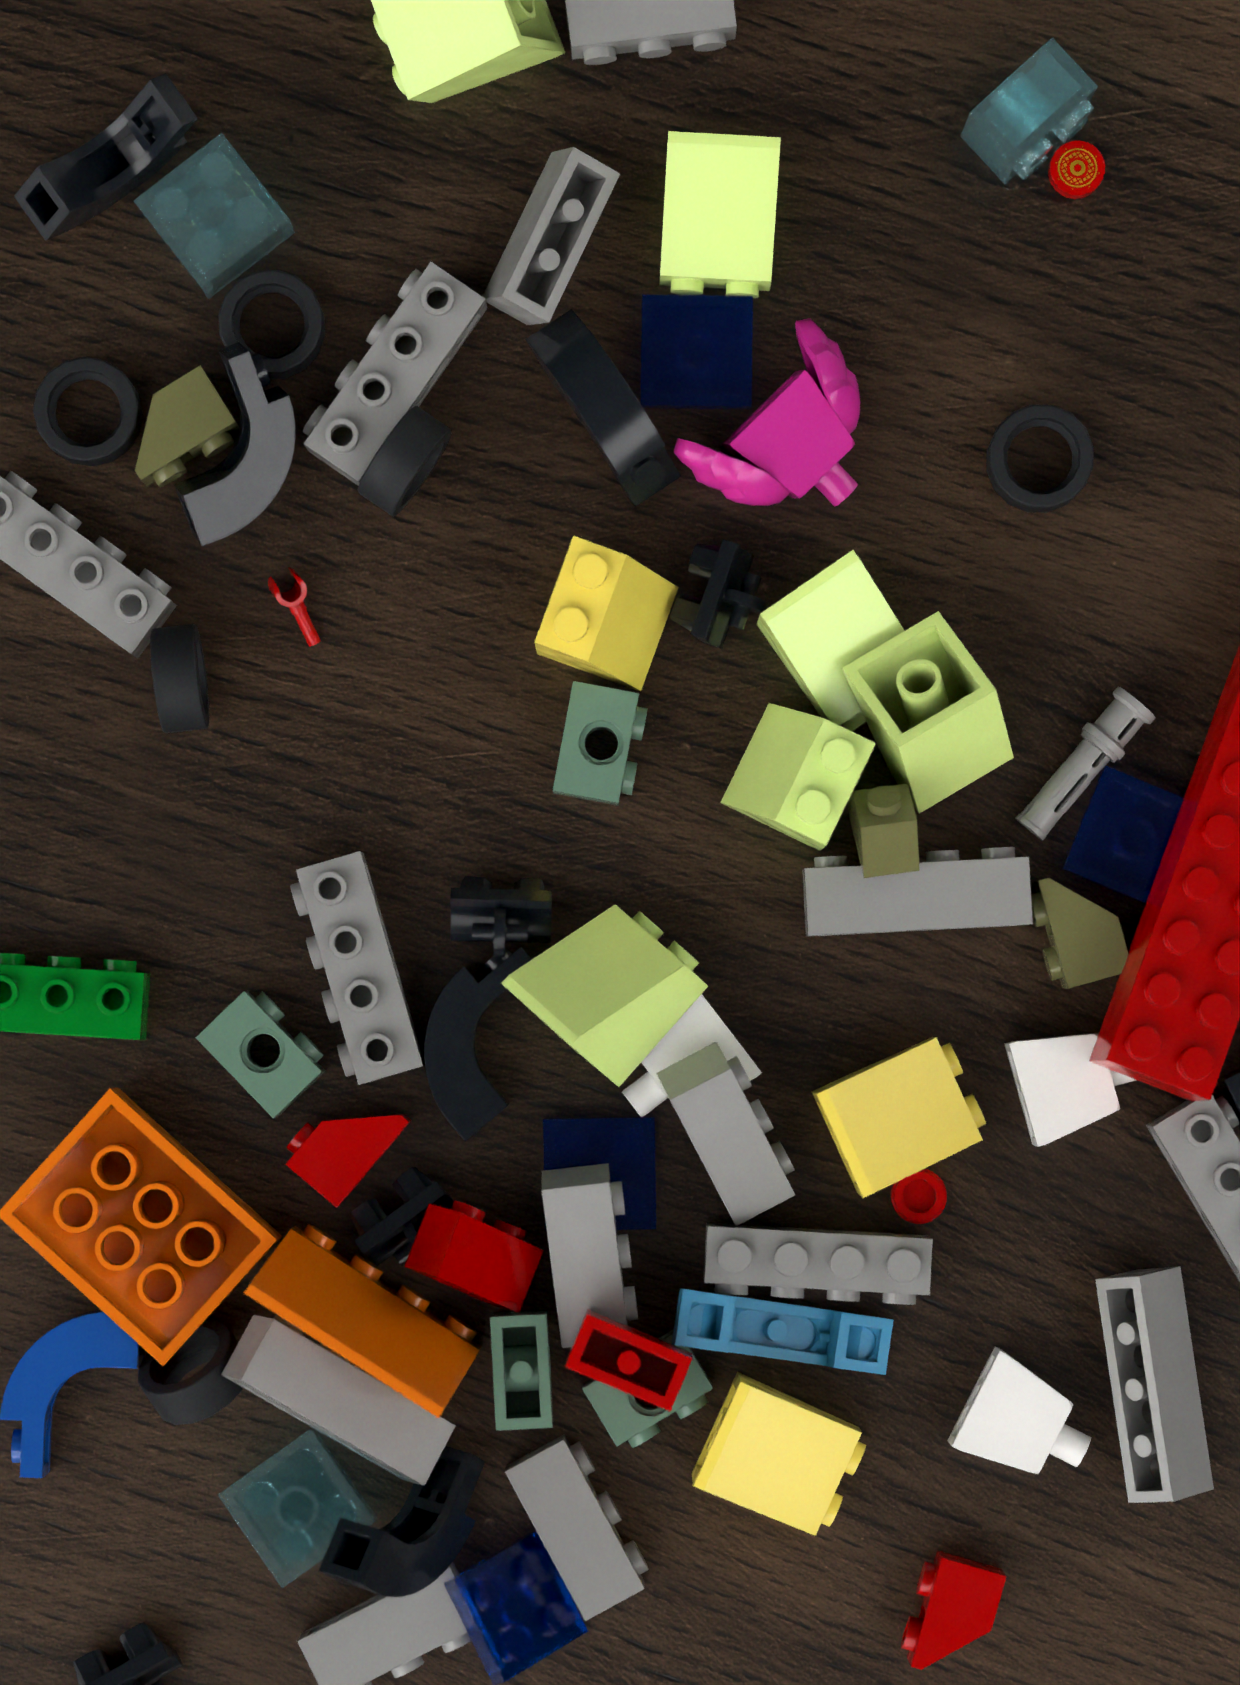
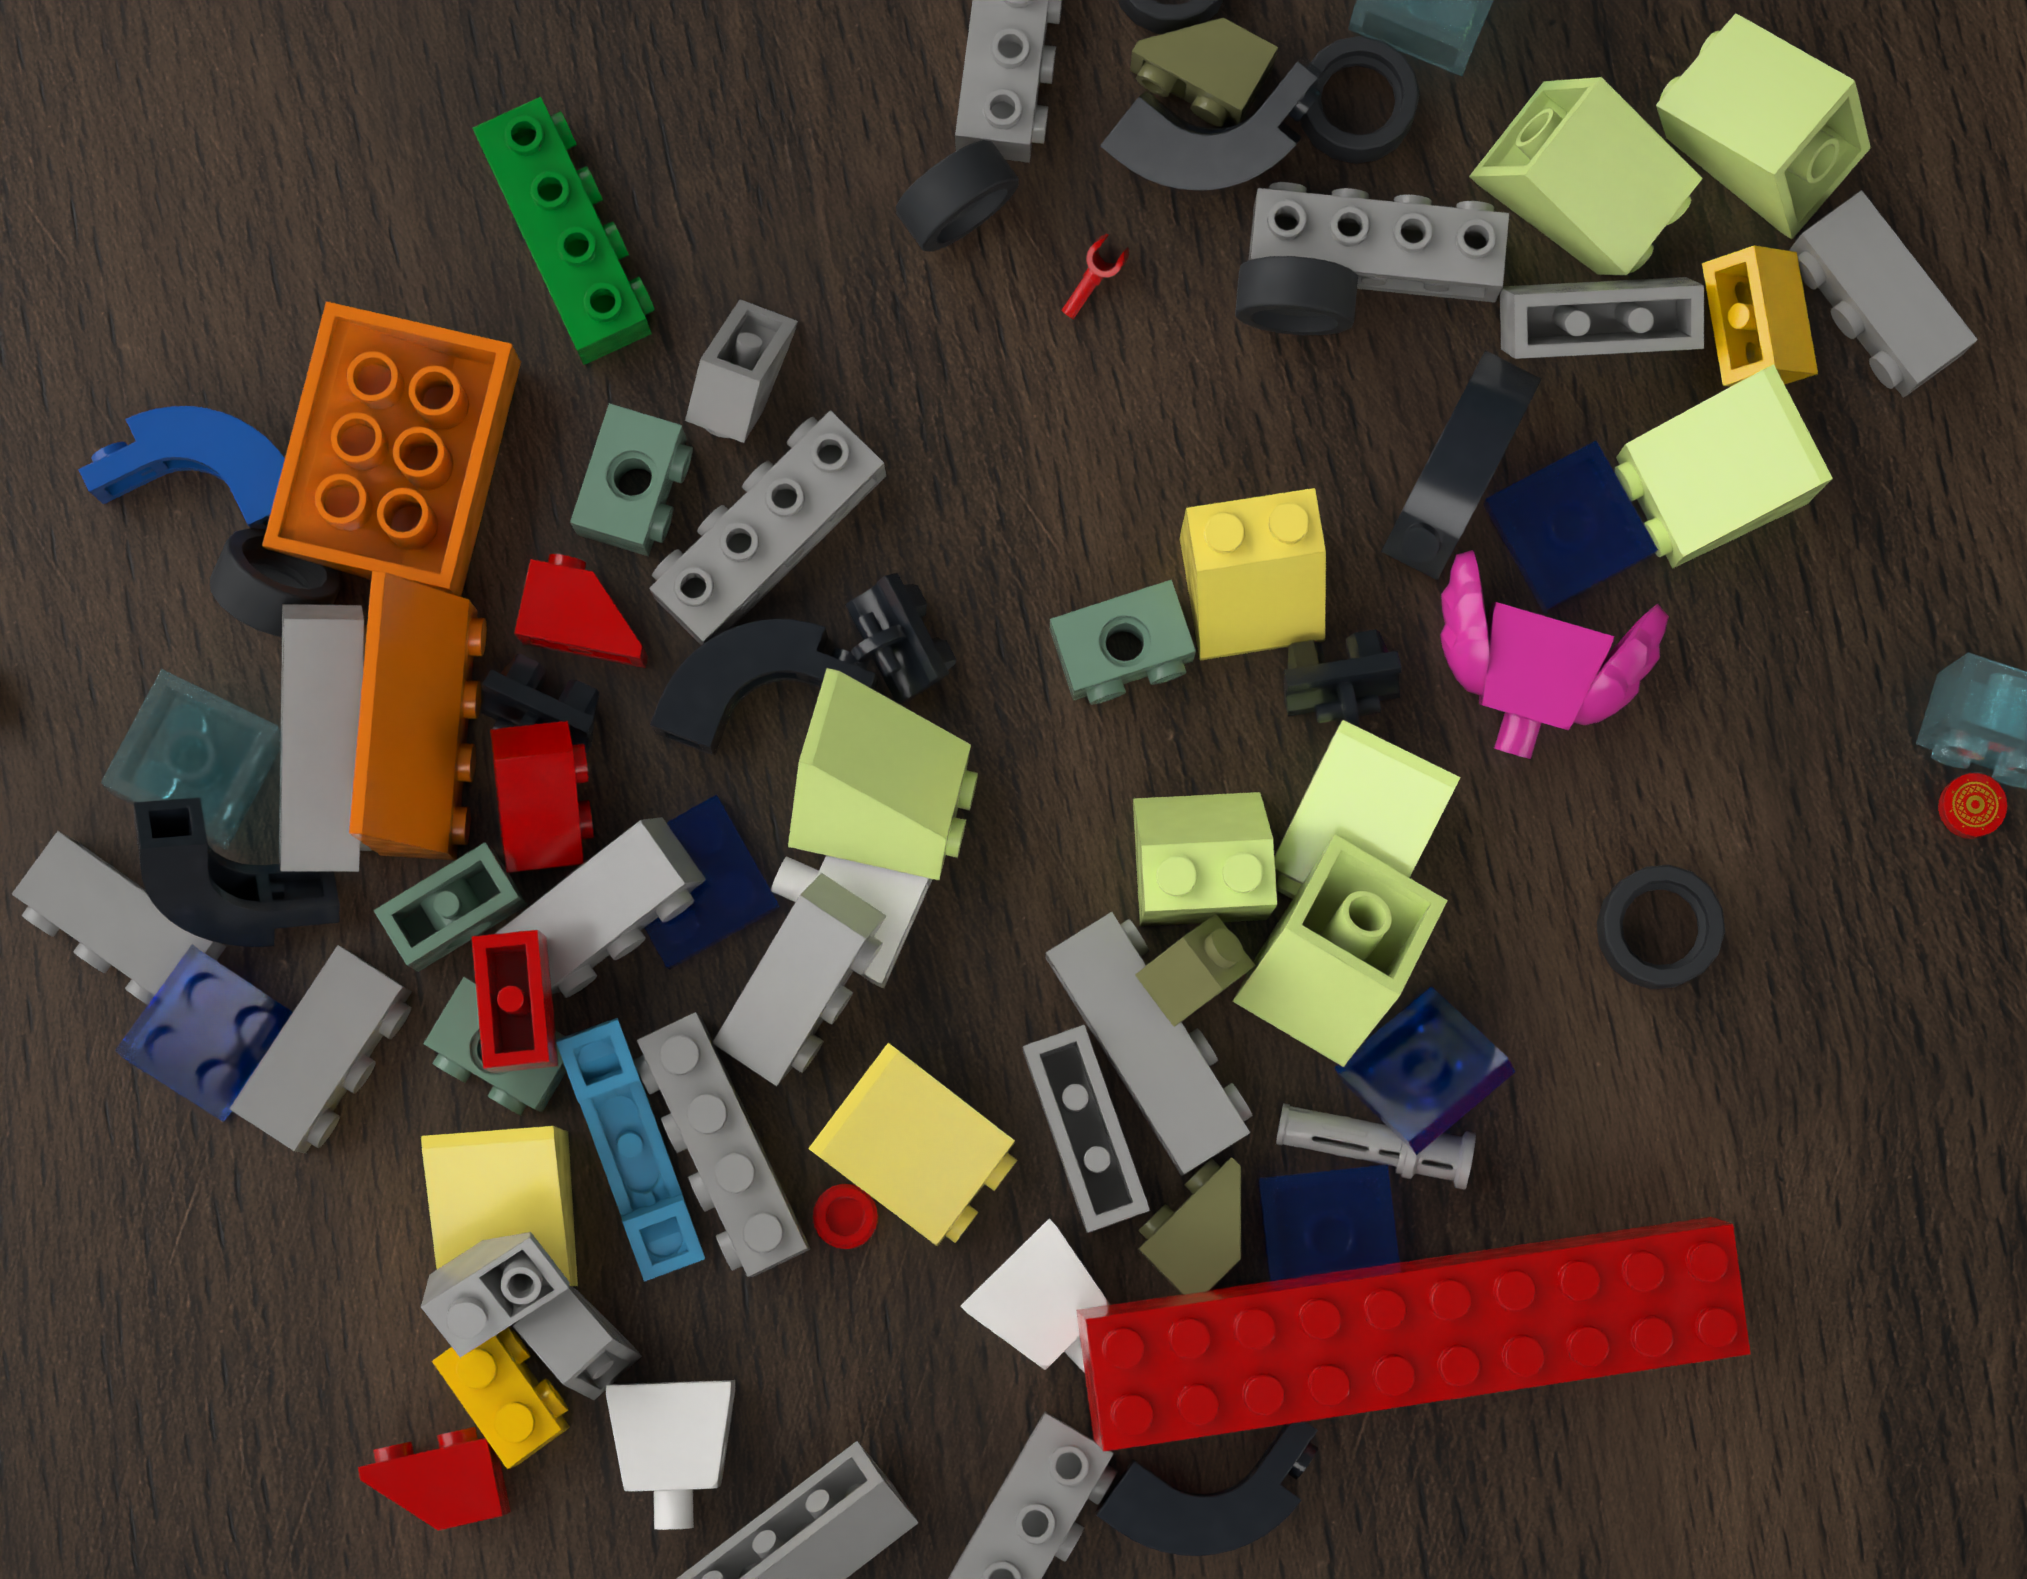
camera: 60 degrees right, 5 degrees down
(221, 920) = (739, 371): none -> light grey slope
(431, 182) = (1589, 174): none -> yellowish green slope
(617, 115) = (1759, 314): none -> yellow brick
(837, 1495) = (490, 1289): none -> light grey slope
(904, 1451) = (577, 1343): none -> light grey slope
(913, 1527) = (505, 1397): none -> yellow brick
(957, 979) = (1085, 1129): none -> light grey brick
(1052, 697) = (1425, 1070): none -> clear blue plate

